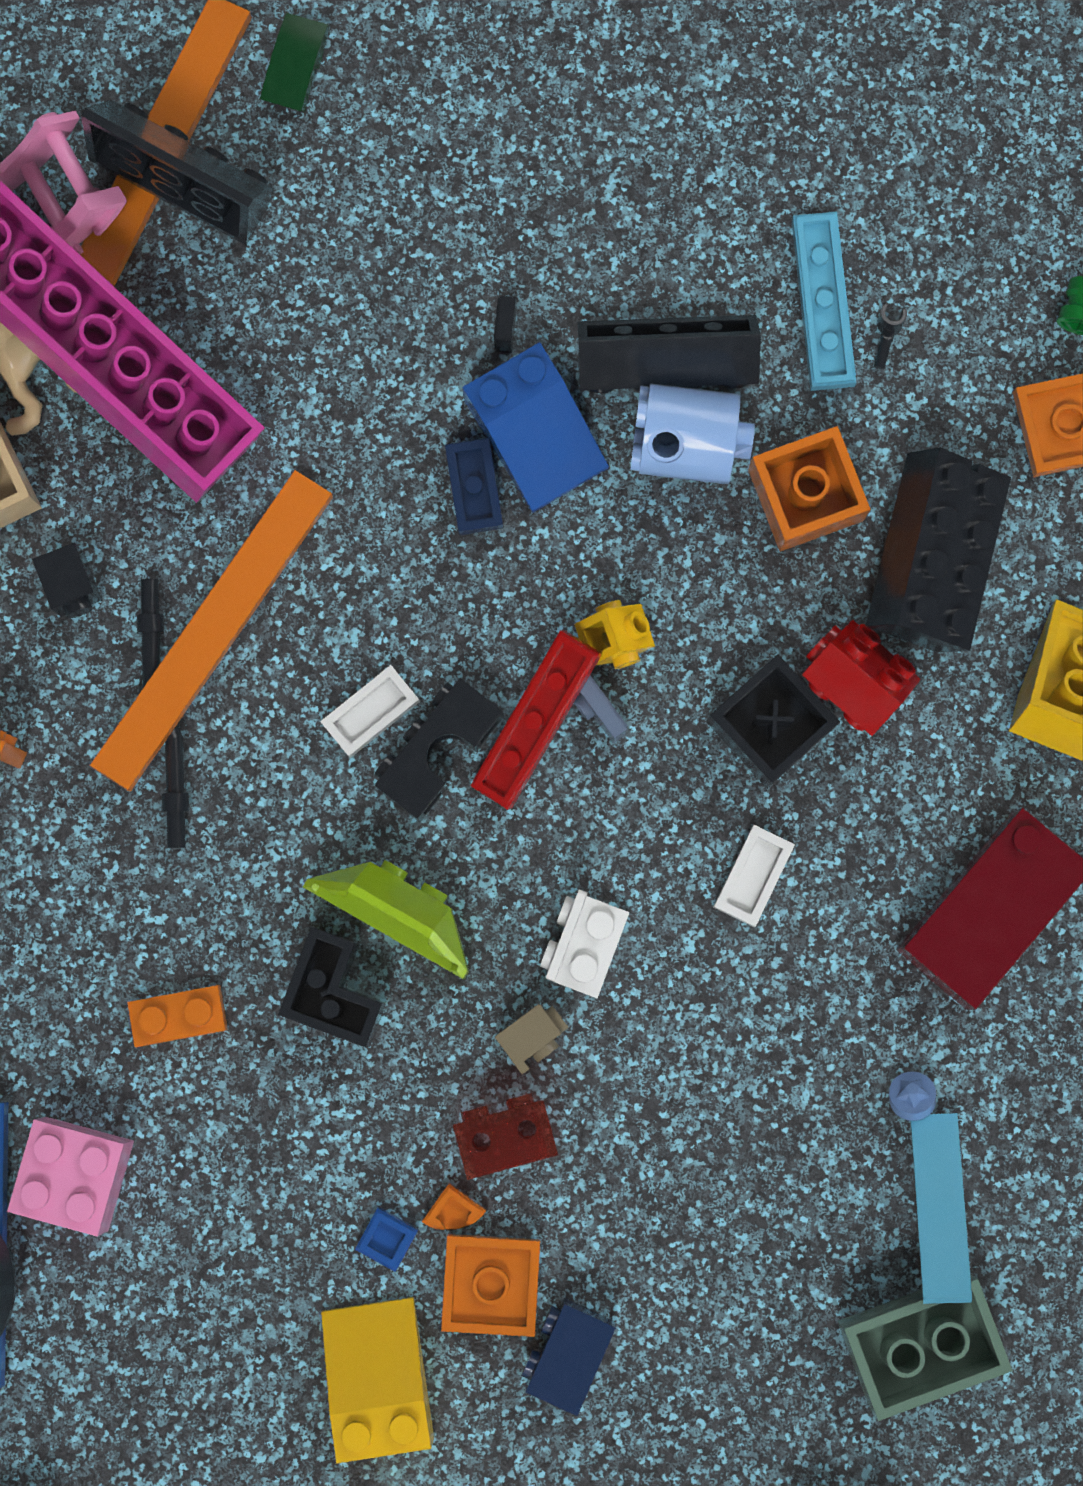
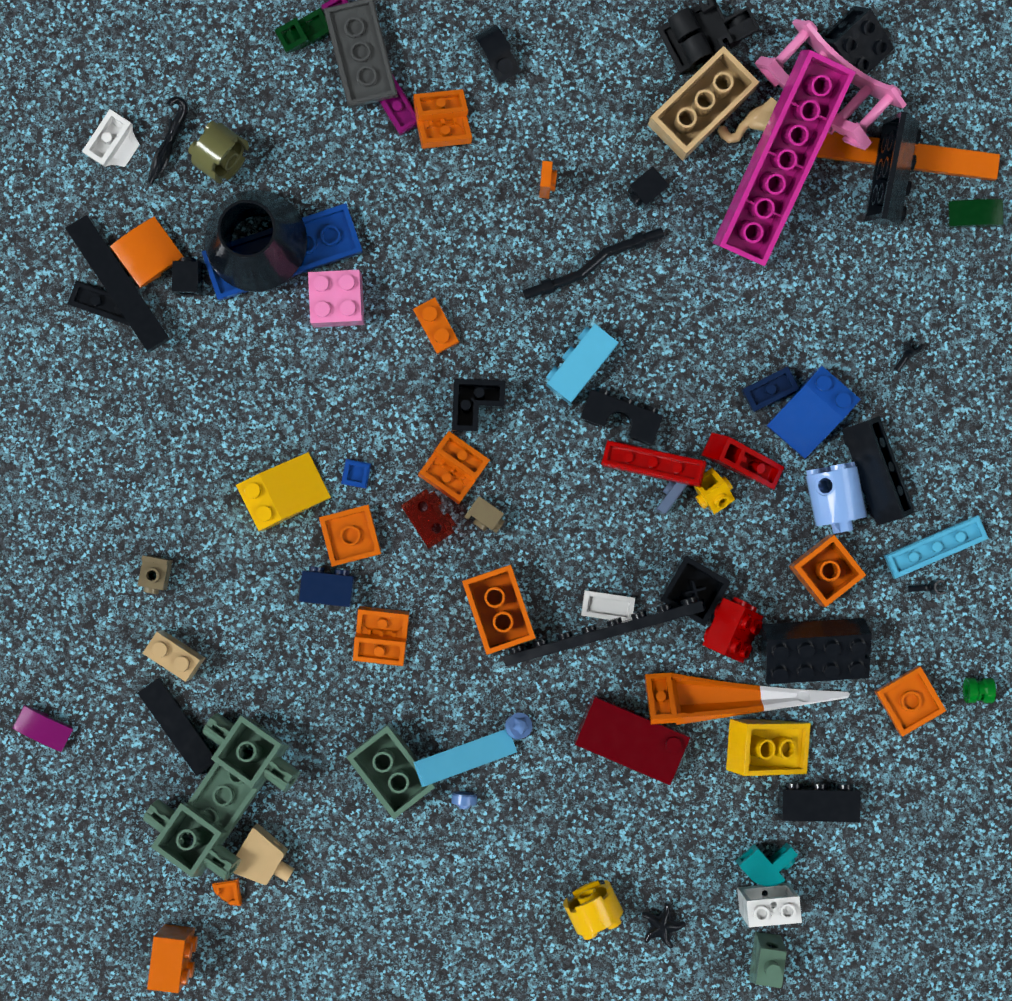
camera: 65 degrees right, 5 degrees up
(211, 631) = (646, 275): orange tile -> none
(324, 787) = (581, 363): none -> medium azure brick
(370, 711) = (630, 373): white tile -> none
(397, 910) = (529, 422): lime wedge -> none
(431, 1064) = (453, 467): none -> orange slope
(453, 1210) = (382, 503): orange tile -> none
(487, 242) = (909, 351): none -> black hand
(505, 324) = (865, 377): black tile -> none
(577, 570) = (742, 460): none -> red slope
(585, 944) = (542, 529): white bracket -> none
(682, 1287) = (381, 636): none -> orange slope
(701, 1066) = (498, 609): none -> orange brick
(795, 876) = (614, 627): none -> black plate
(958, 780) = (696, 699): none -> orange plate
(1011, 1232) = (464, 799): none -> medium blue tile

